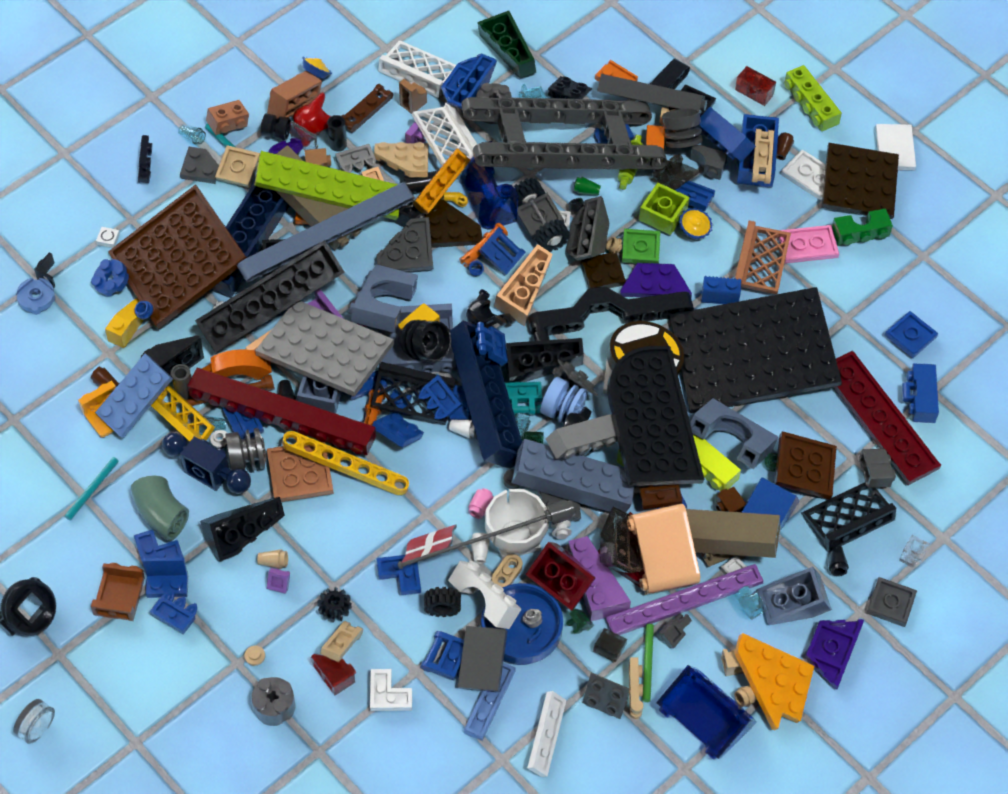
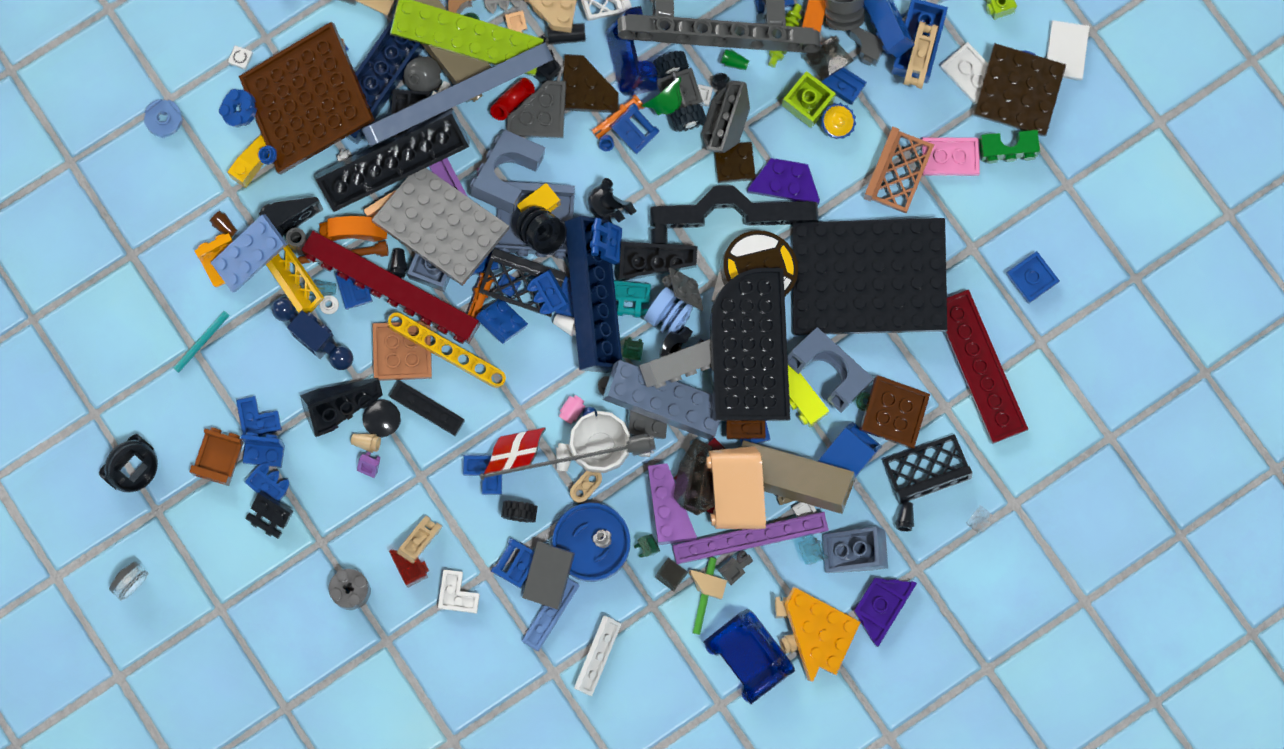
camera: 10 degrees right, 20 degrees up
(43, 267) = (171, 87): black bracket -> none
(159, 506) = (263, 375): sand green brick -> none
(181, 633) = (271, 510): none -> black plate
(246, 450) = (351, 326): flat silver wheel -> none
(254, 655) = (338, 538): tan plate -> none
(286, 535) = (381, 418): none -> black dish
(287, 224) = (422, 74): none -> dark grey cylinder
(332, 520) = (427, 408): none -> black plate
(341, 602) = (422, 492): black gear -> none
(378, 240) = (512, 98): none -> red cylinder
(441, 181) = (584, 41): light orange brick -> none
(456, 197) = (599, 55): yellow arm -> none
(500, 608) = (570, 530): white arch -> none
(523, 287) = (650, 174): light nougat wedge -> none
(523, 423) = (625, 329): clear light blue cone -> none
(529, 218) = (668, 100): none -> green hat
(561, 575) = (635, 501): dark red slope -> none
(606, 695) = (657, 628): dark grey hinge -> none
(614, 245) = (750, 134): tan plate -> none
(636, 689) = (687, 622): tan plate -> none
(640, 246) = (778, 139): bright green plate -> none
(650, 649) = (709, 584): none -> tan slope
(720, 290) = (849, 203): blue brick -> none
(729, 501) = (812, 442): reddish brown brick -> none
(784, 144) = (949, 35): reddish brown cone -> none
(876, 468) = (964, 424): dark grey brick -> none
(891, 602) = (948, 565): dark grey tile -> none
(924, 401) = (1029, 354): blue piece -> none

